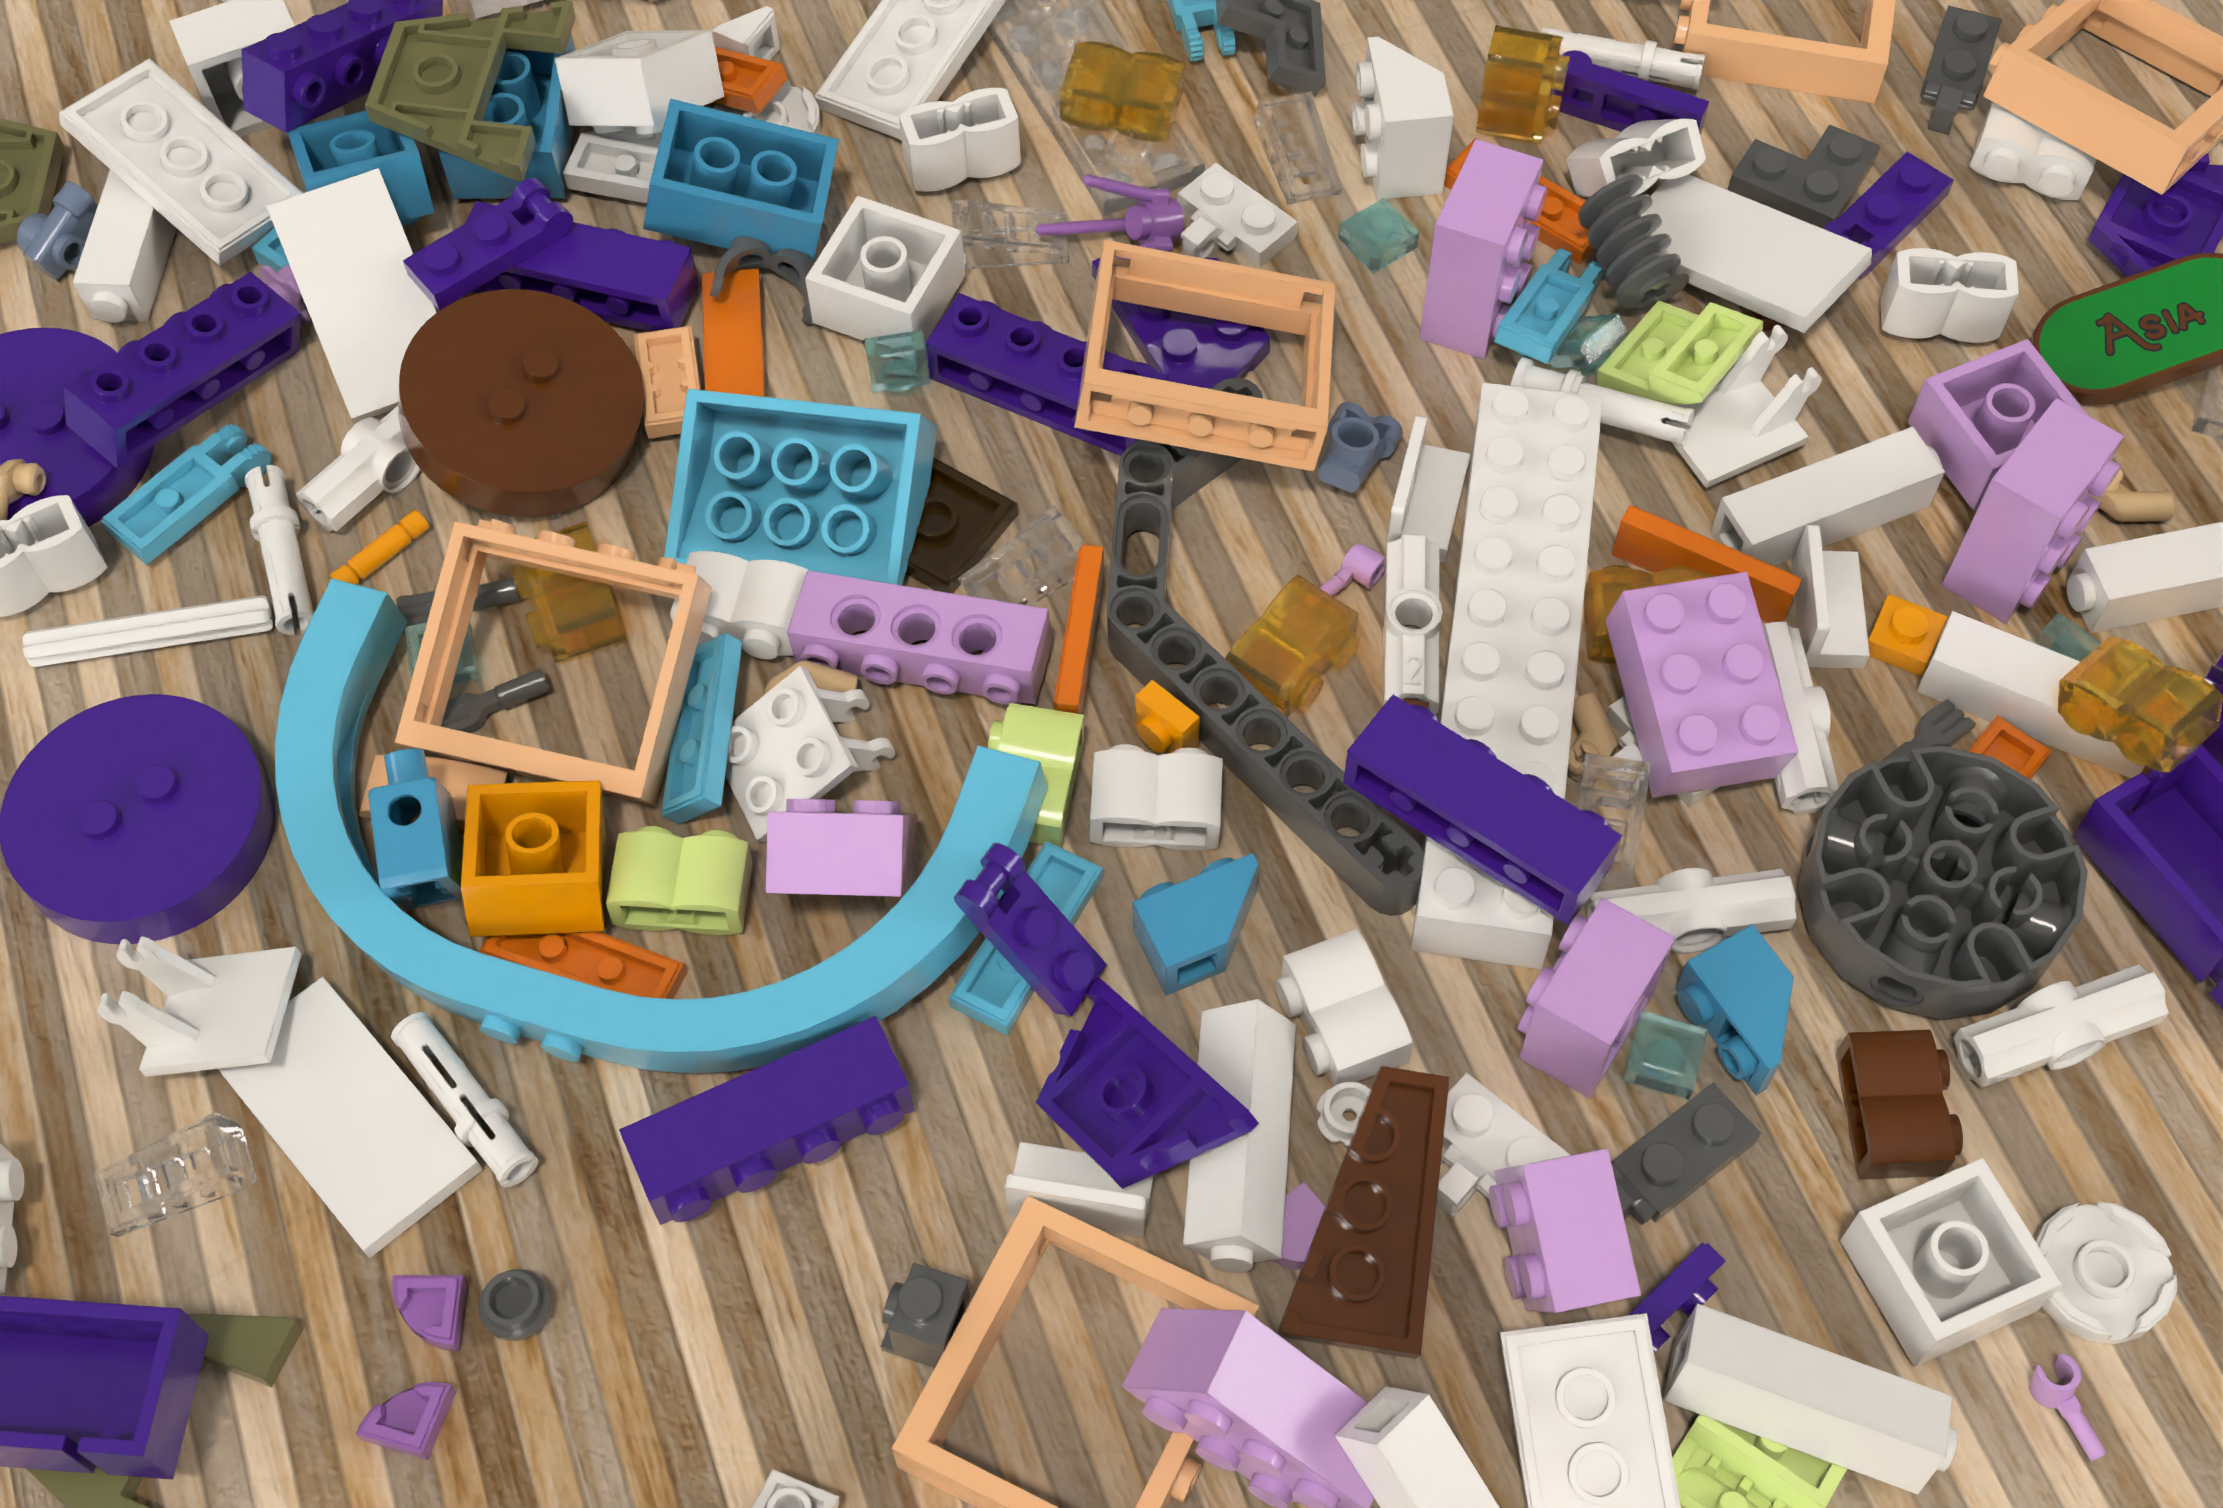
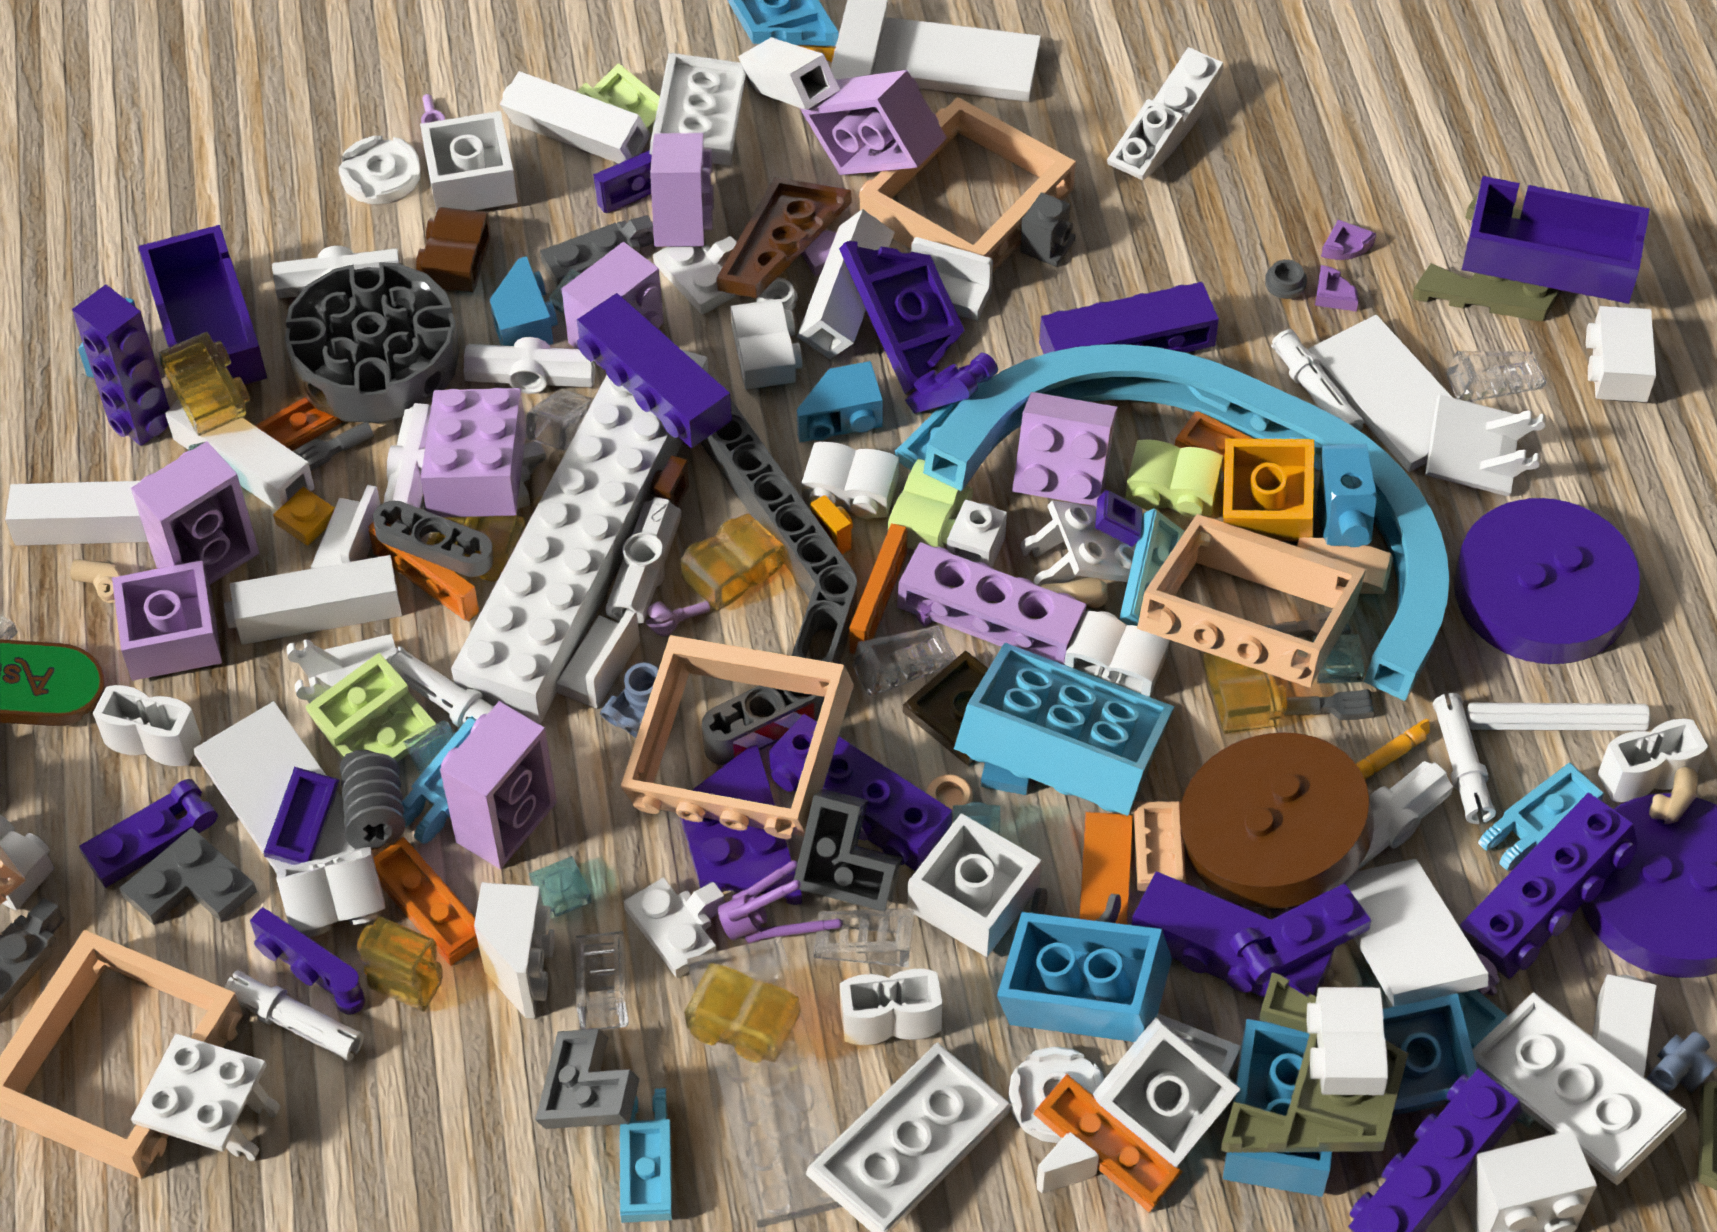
camera: 170 degrees left, 5 degrees down
(428, 78) = (1350, 1041): none -> white brick
(754, 781) = (1119, 518): none -> dark purple tile
(941, 403) = (950, 790): none -> light nougat tile
(950, 734) = (978, 532): none -> white brick
(1039, 267) = (833, 862): none -> dark grey brick
(1686, 537) = (443, 554): none -> dark grey beam
(1706, 222) = (301, 817): none -> dark purple tile

